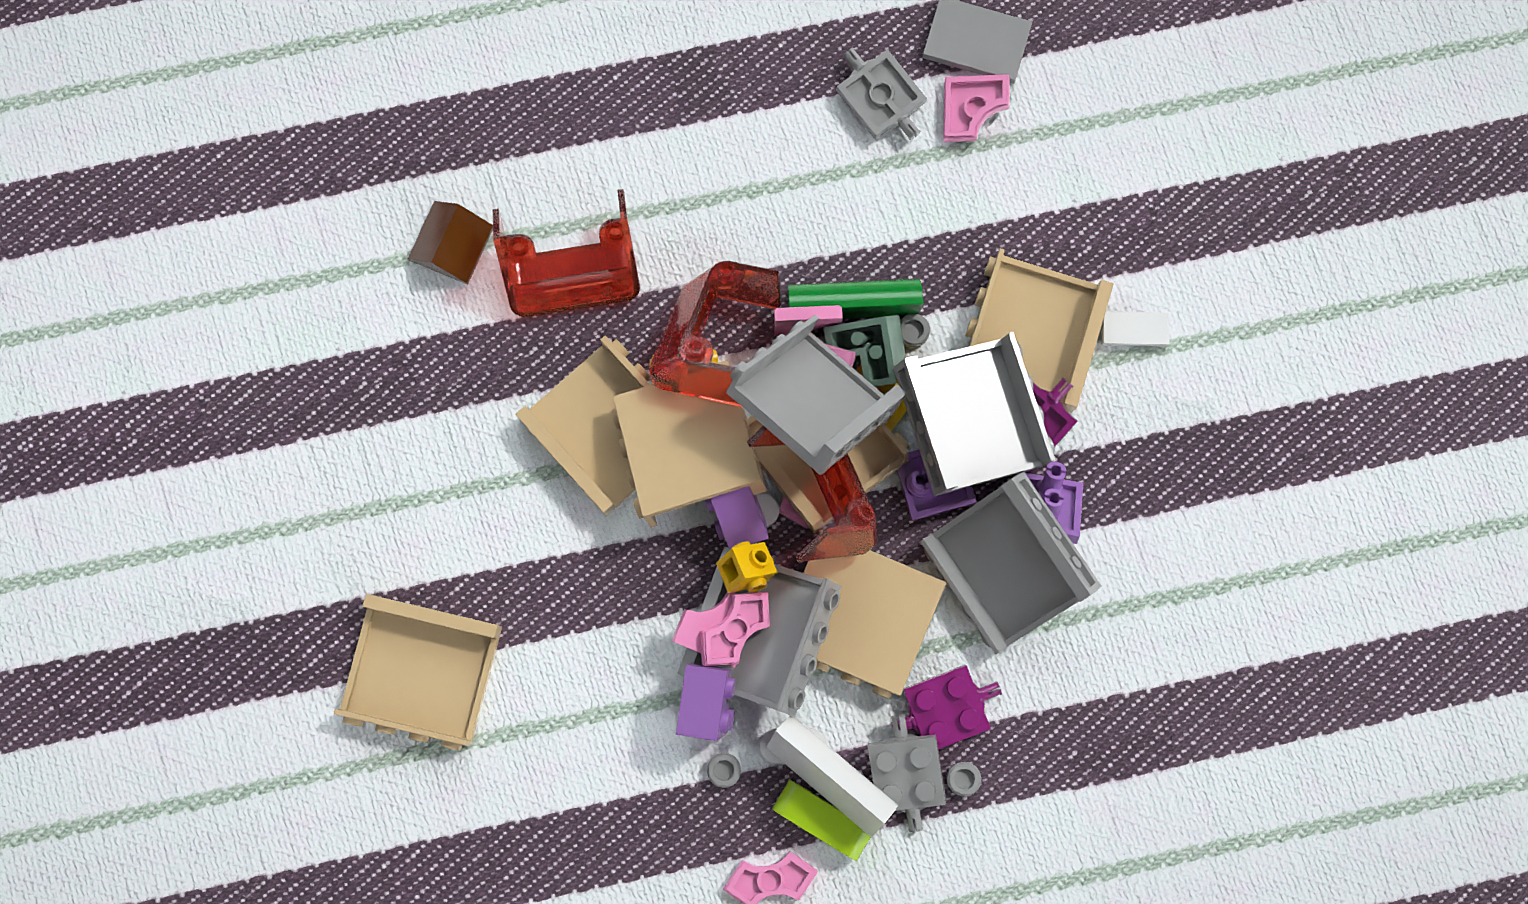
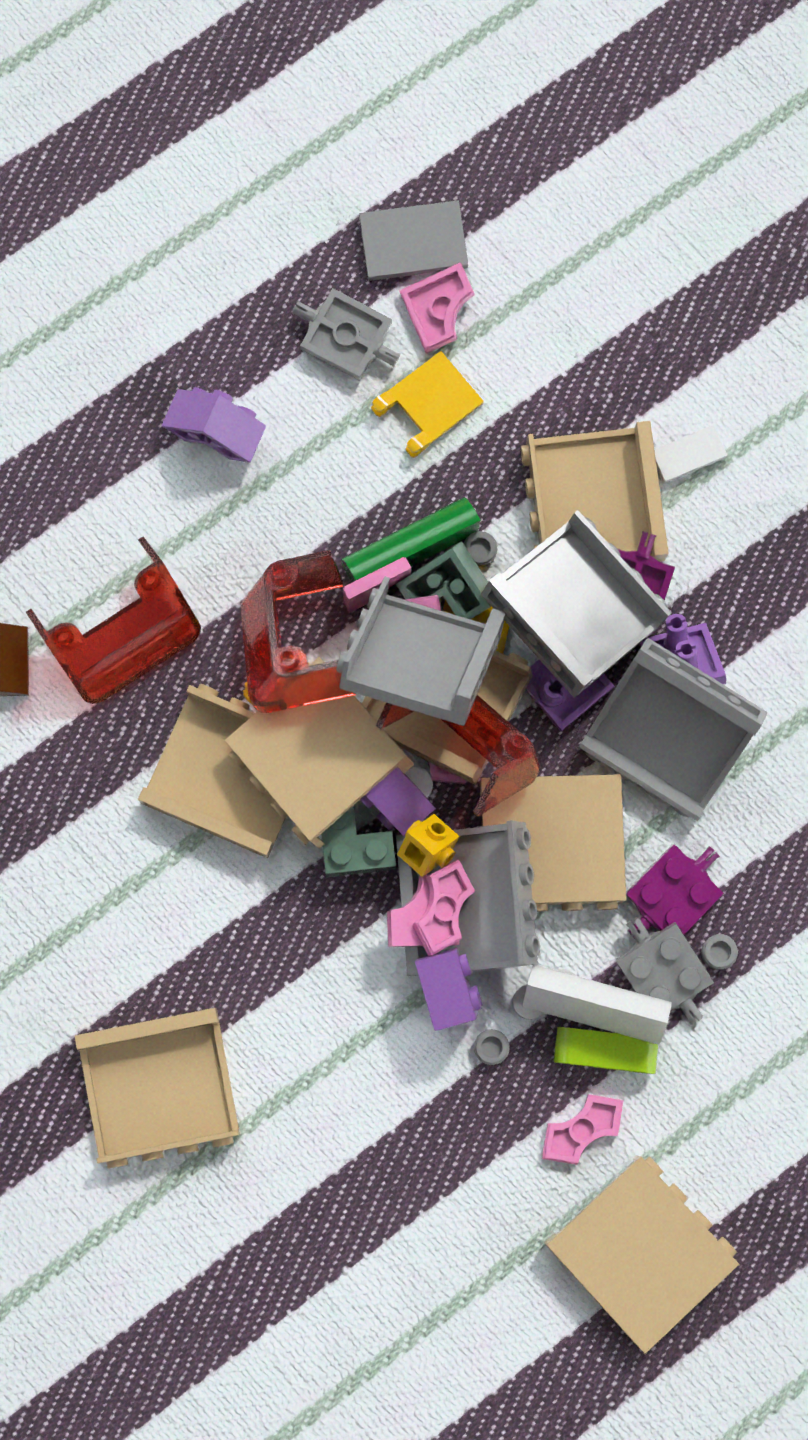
camera: 30 degrees left, 0 degrees up
(679, 545) = (356, 854): none -> sand green brick
(733, 120) = (214, 422): none -> medium lavender brick
(932, 183) = (433, 398): none -> yellow flag

